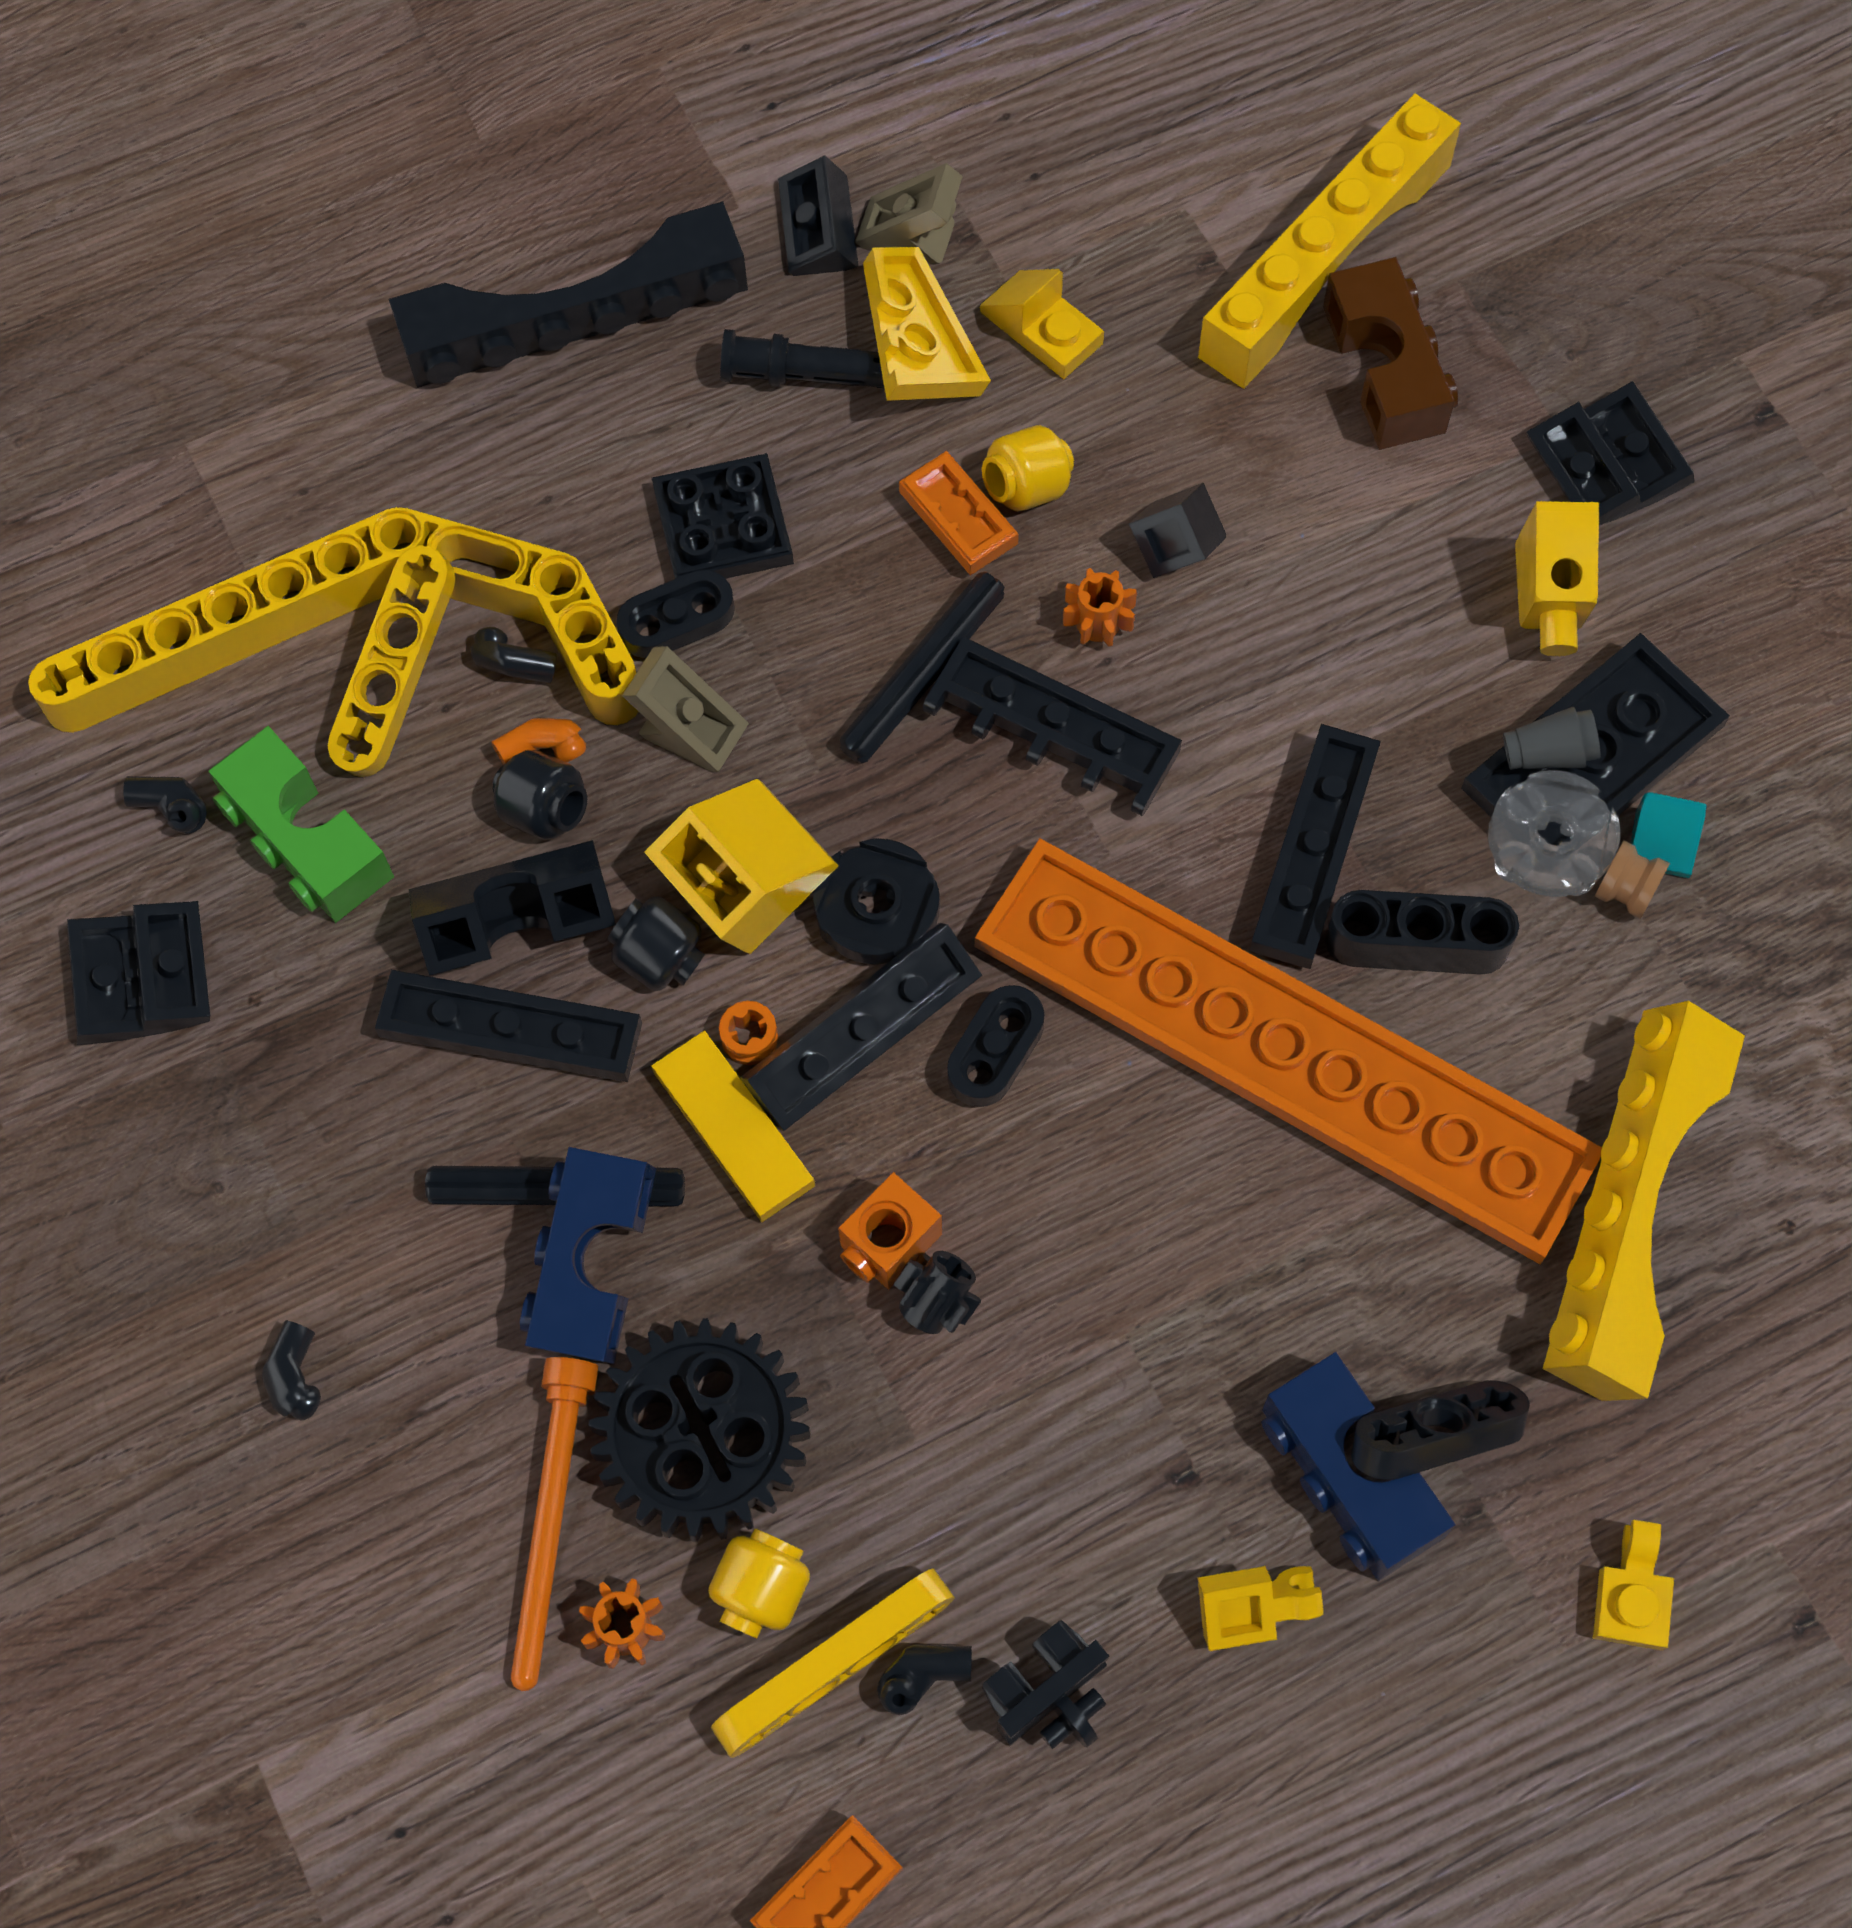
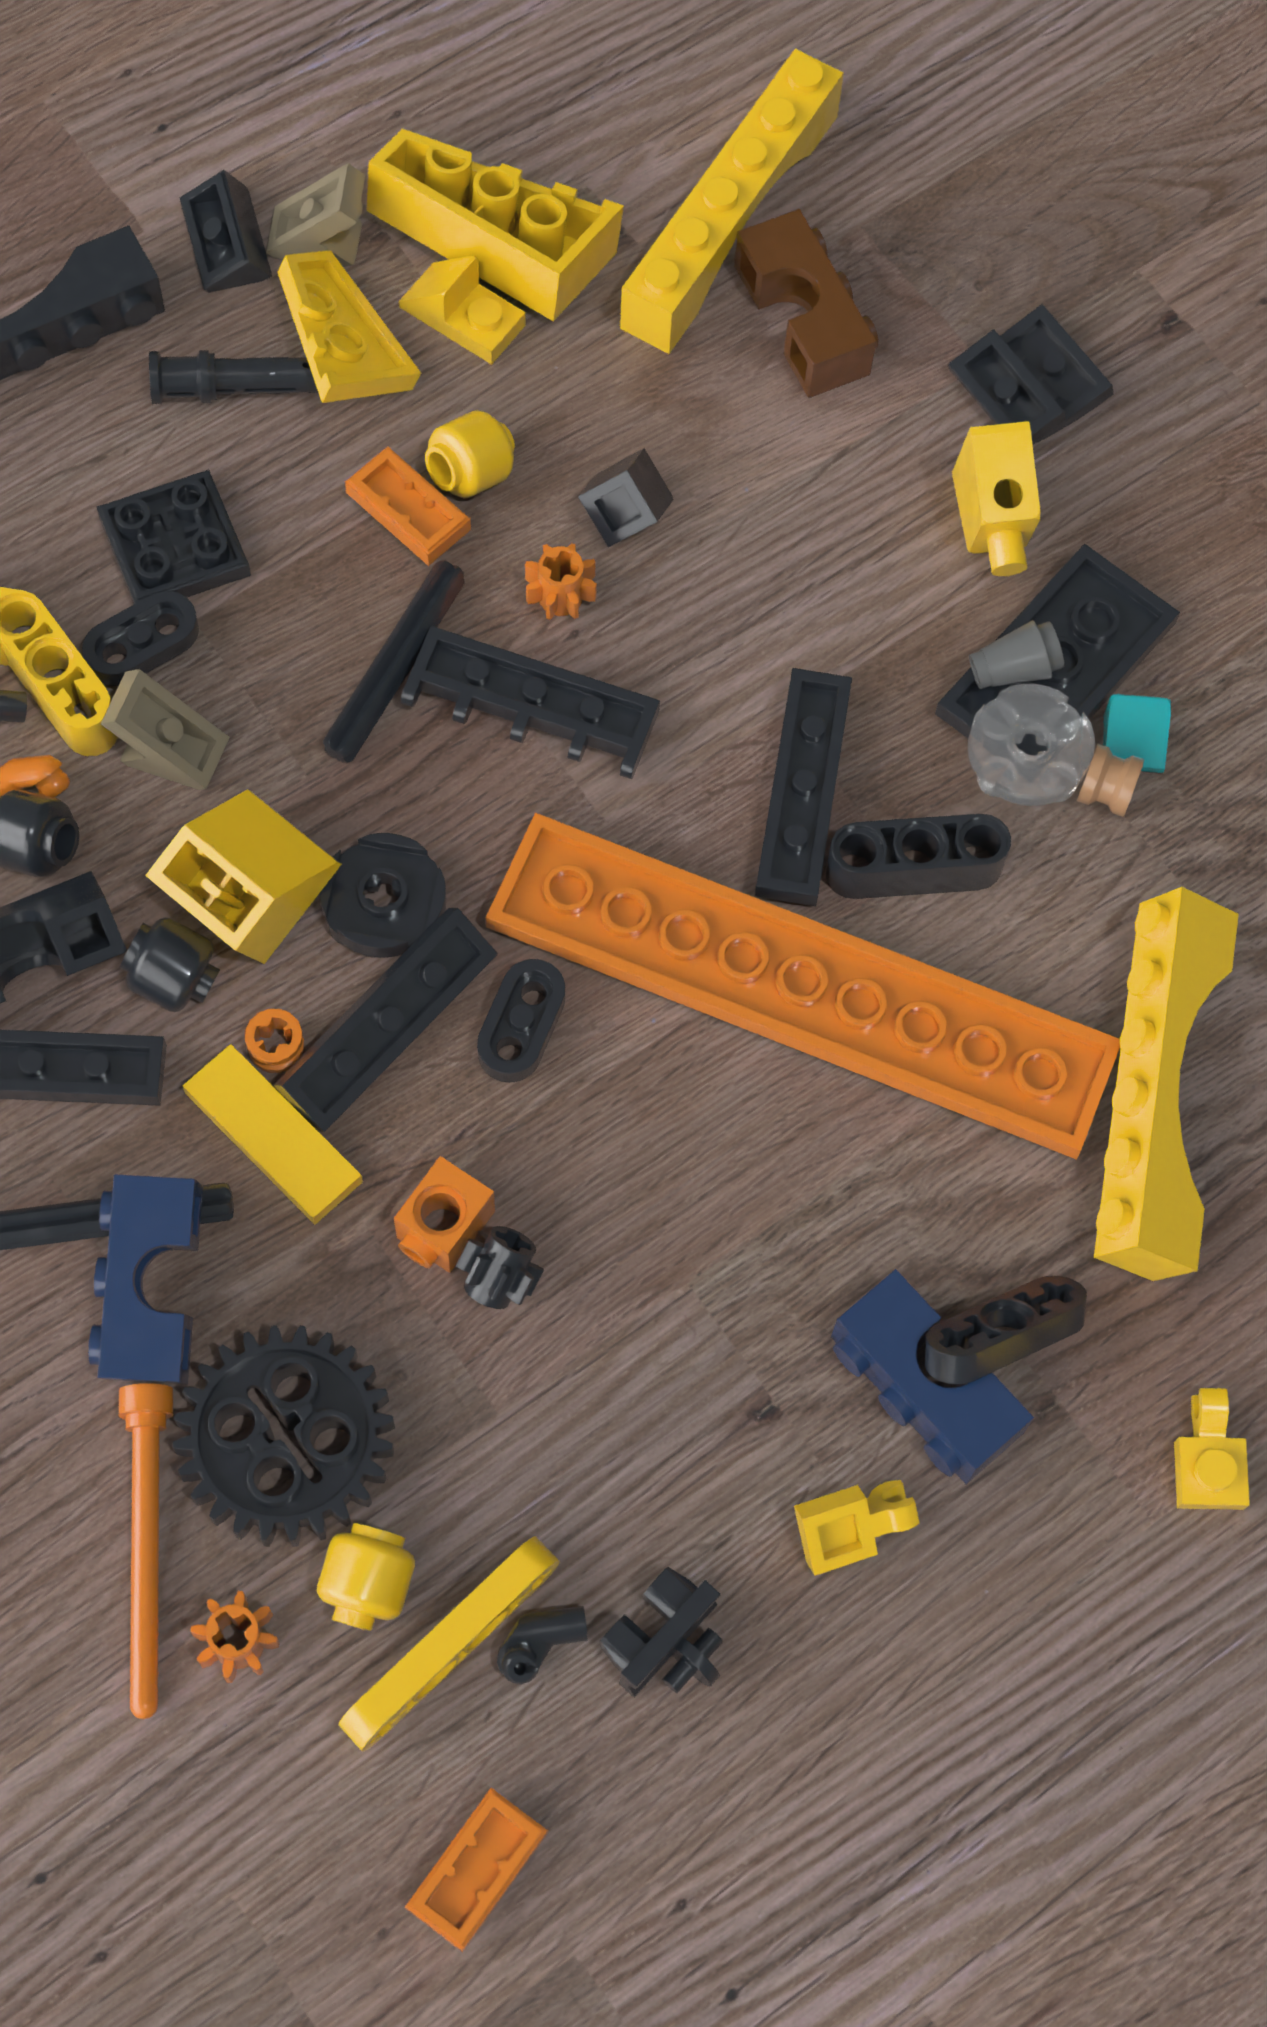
camera: 15 degrees left, 0 degrees up
(1113, 254) = (526, 236): none -> yellow wedge

